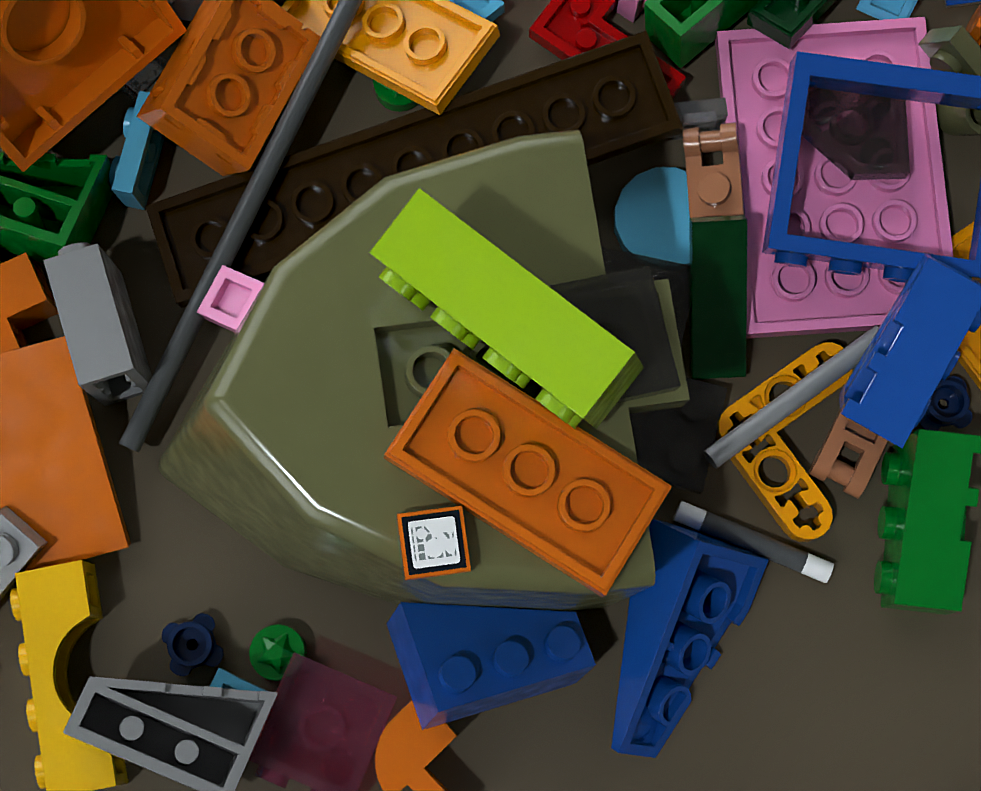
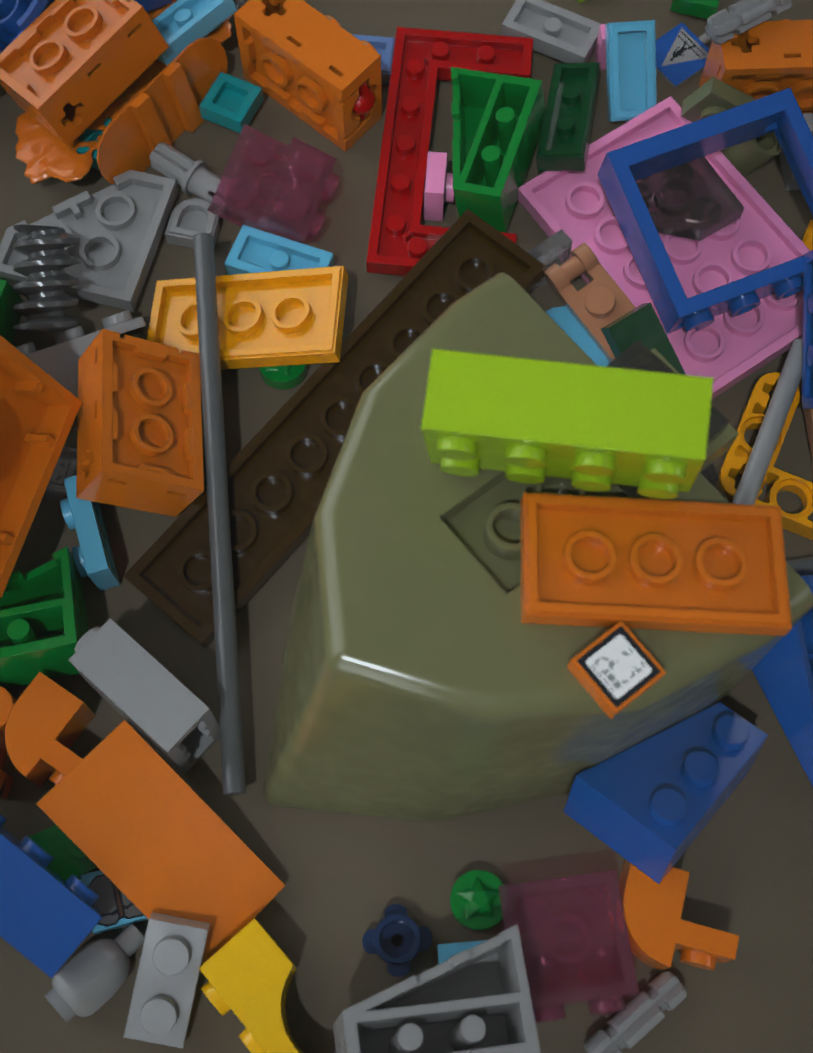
camera: 30 degrees left, 10 degrees down
(229, 298) = (257, 608): bright pink plate -> none

